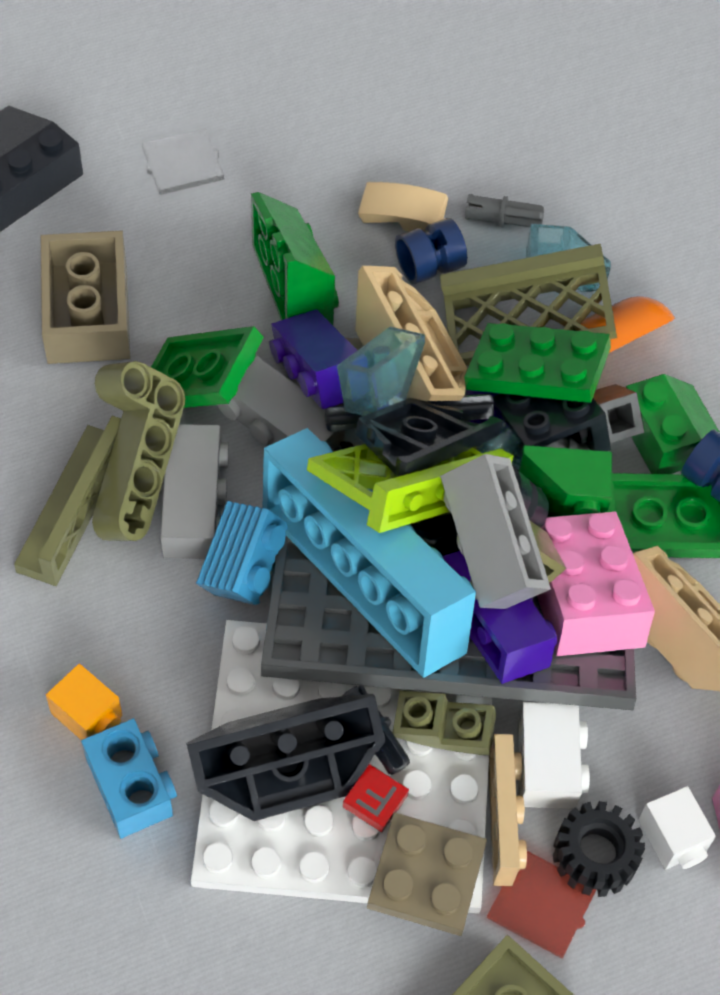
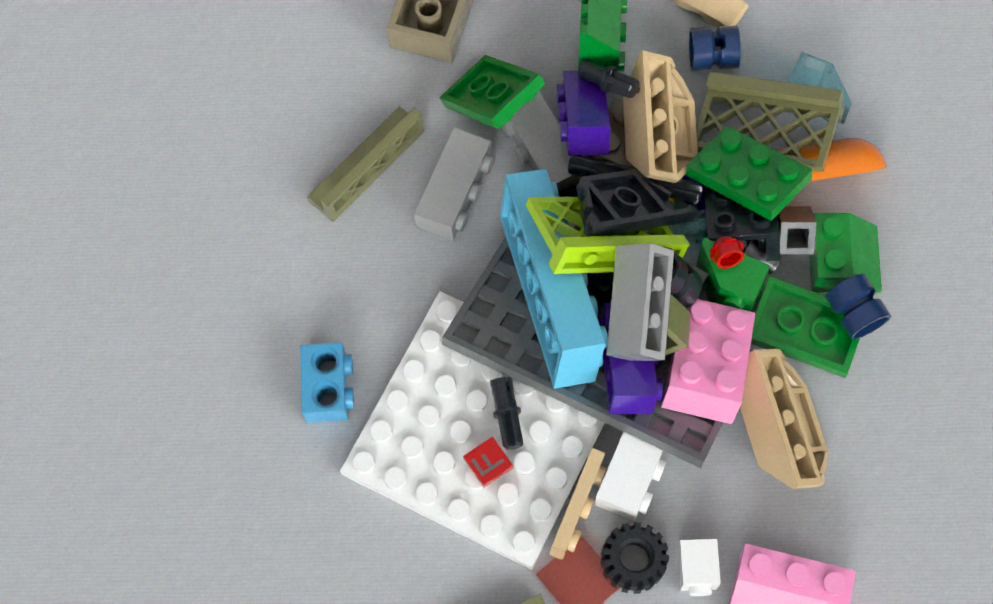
camera: 30 degrees right, 10 degrees up
(84, 703) = (316, 318): light orange brick -> none
(141, 449) = (416, 142): olive beam -> none
(242, 553) = (467, 246): dark azure brick -> none
(288, 755) = (434, 409): black wedge -> none
(334, 310) = (608, 78): none -> black axle
(380, 371) = (618, 142): clear light blue slope -> none
(427, 874) = (501, 529): dark tan plate -> none
(443, 724) = (560, 426): olive slope -> none
(504, 211) = (790, 31): dark grey axle -> none
(560, 450) = (727, 252): none -> red plate

